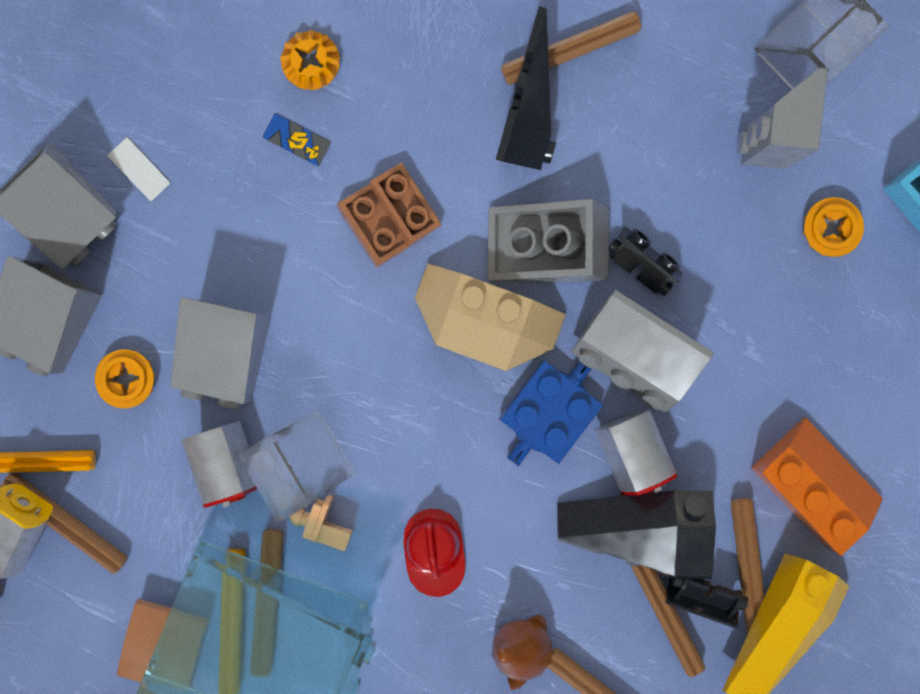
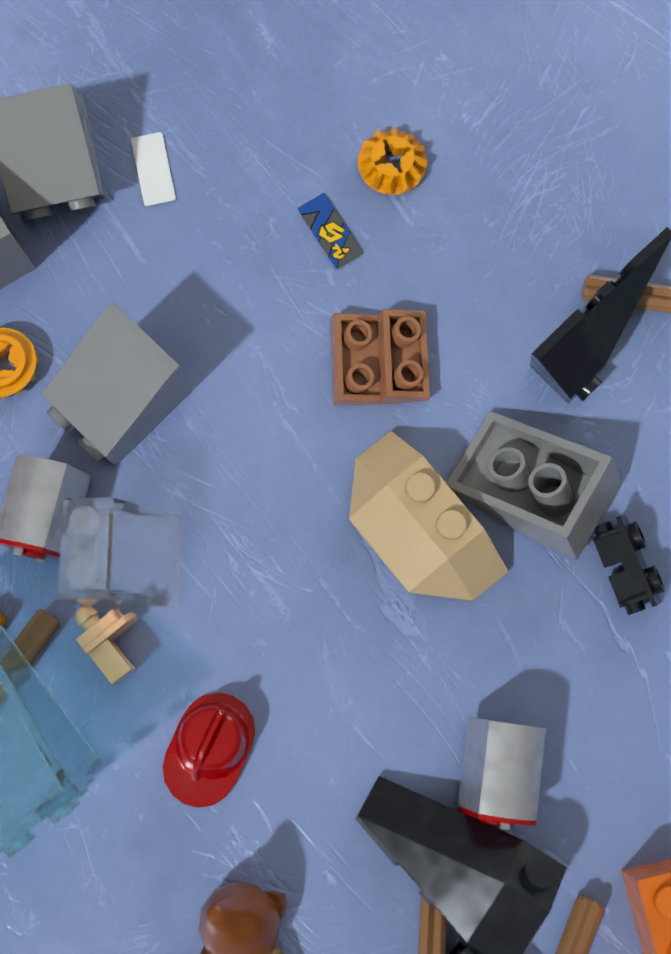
camera: 25 degrees right, 10 degrees down
(550, 412) = (431, 668): blue plate -> none
(641, 352) = (574, 658): light grey slope -> none

